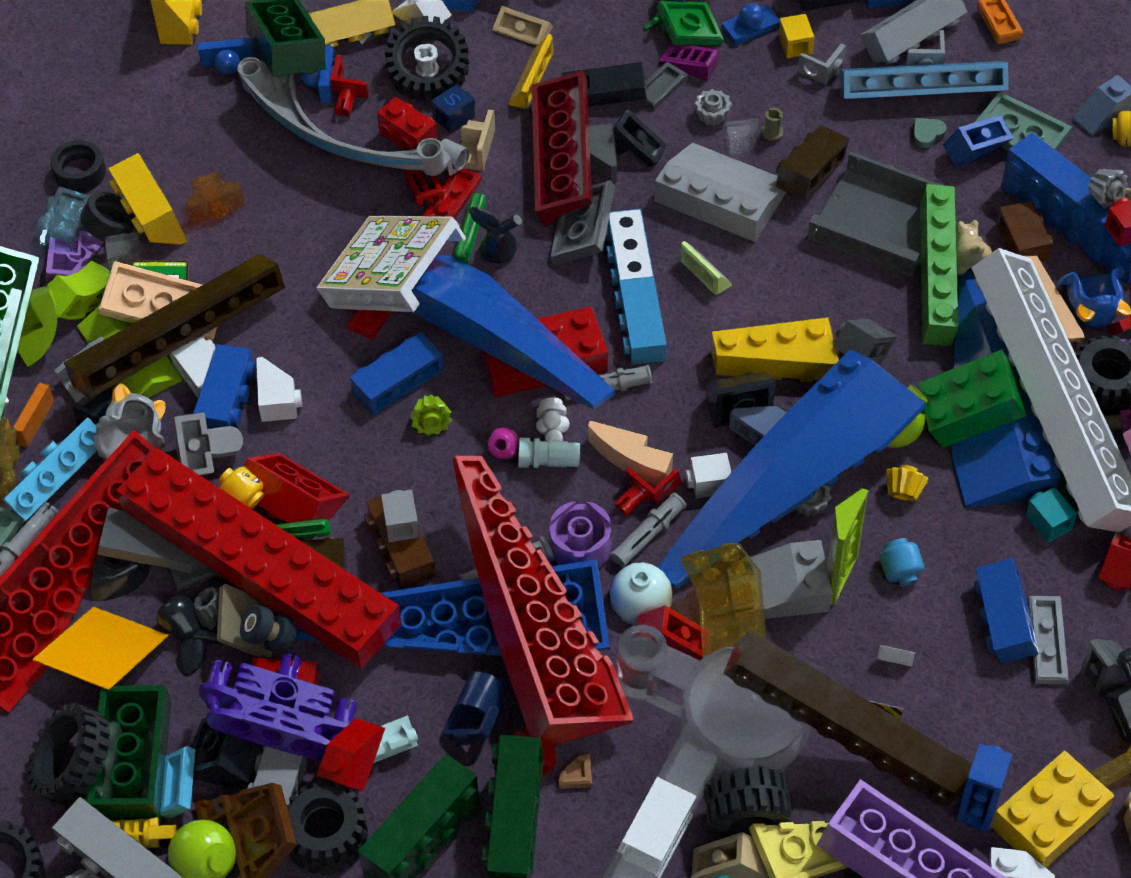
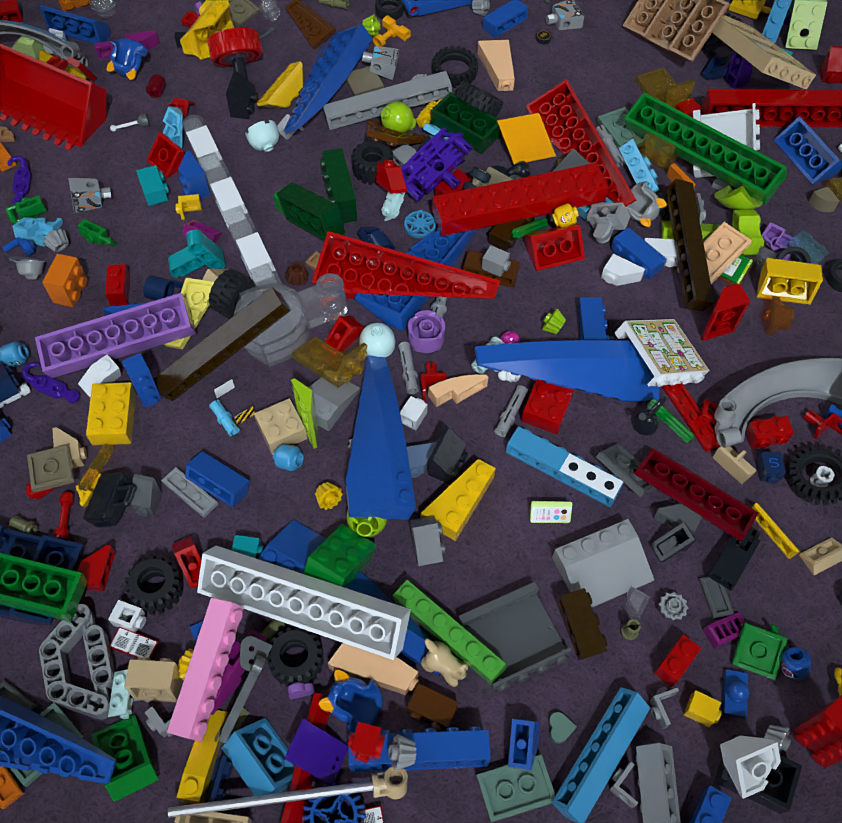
camera: 125 degrees right, 5 degrees up
(274, 228) = (727, 312): none -> red slope
(387, 688) = (419, 224): none -> dark azure wheel
(625, 773) = (296, 274): none -> copper piece
(768, 74) = (677, 660): none -> red brick
(871, 600) = (280, 425): none -> tan brick
(921, 680) = (224, 418): none -> medium azure pin

